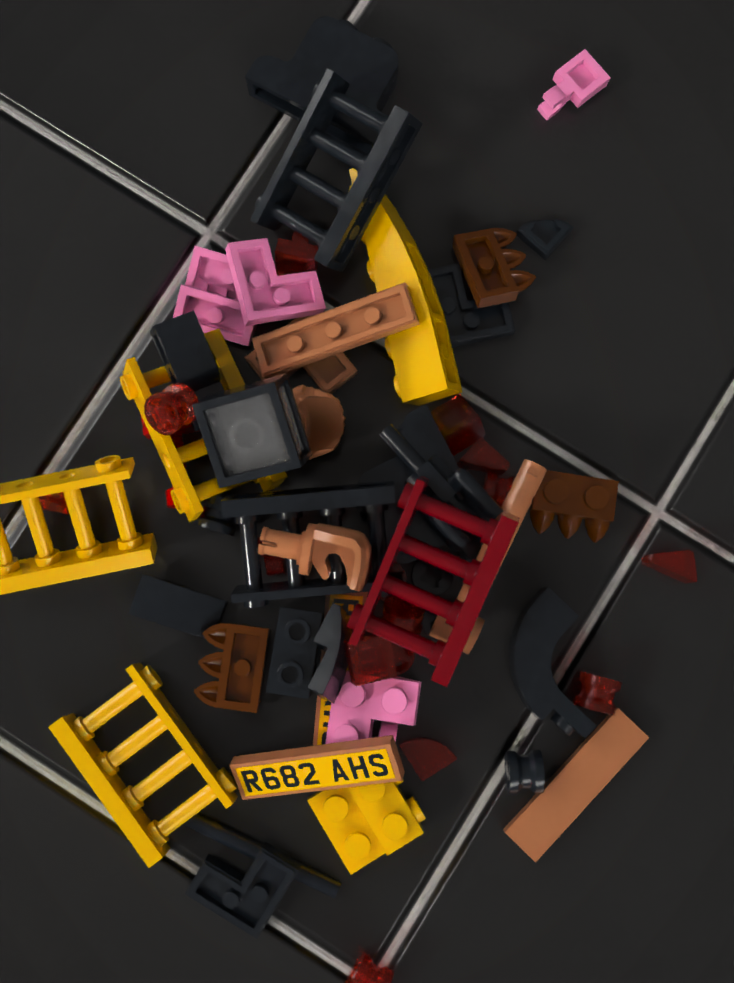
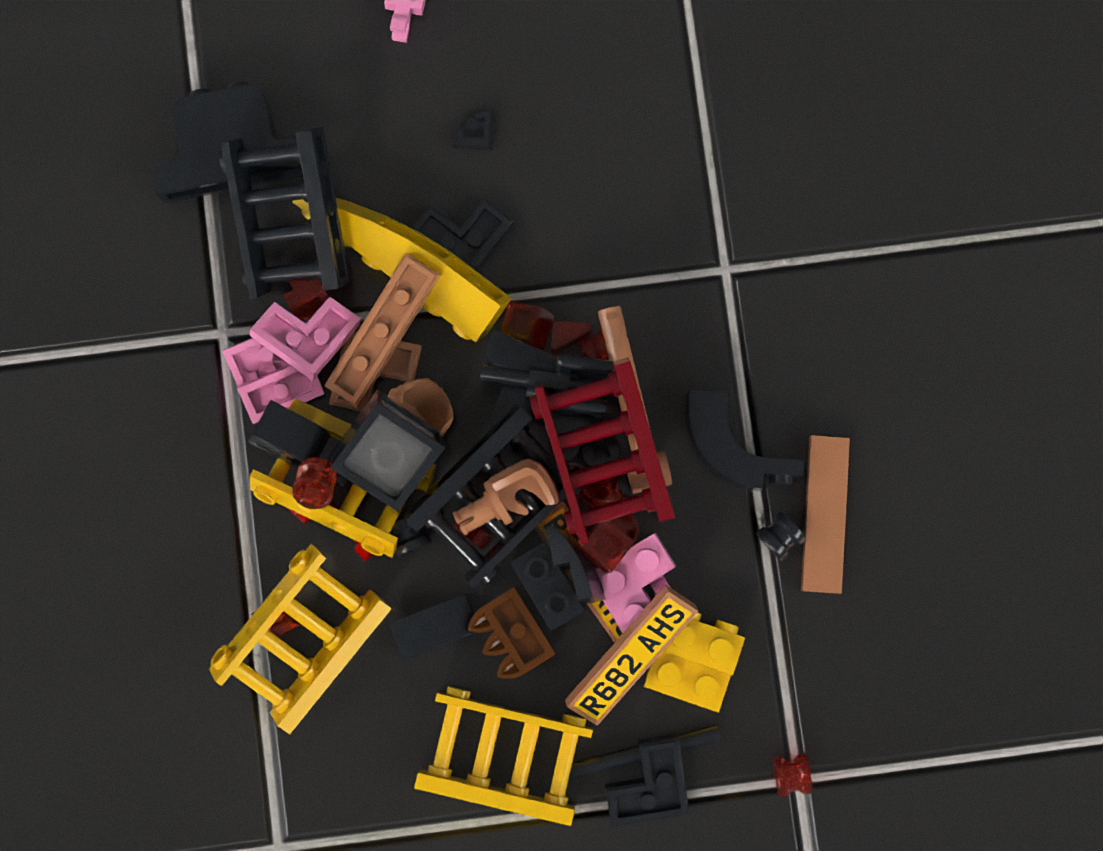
camera: 40 degrees left, 0 degrees up
(427, 756) = (703, 583): clear red tile -> none
(490, 267) = (454, 189): reddish brown plate -> none
(572, 500) = (656, 312): reddish brown plate -> none
(597, 693) = (787, 436): clear red wheel -> none
(677, 565) = (767, 298): clear red slope -> none

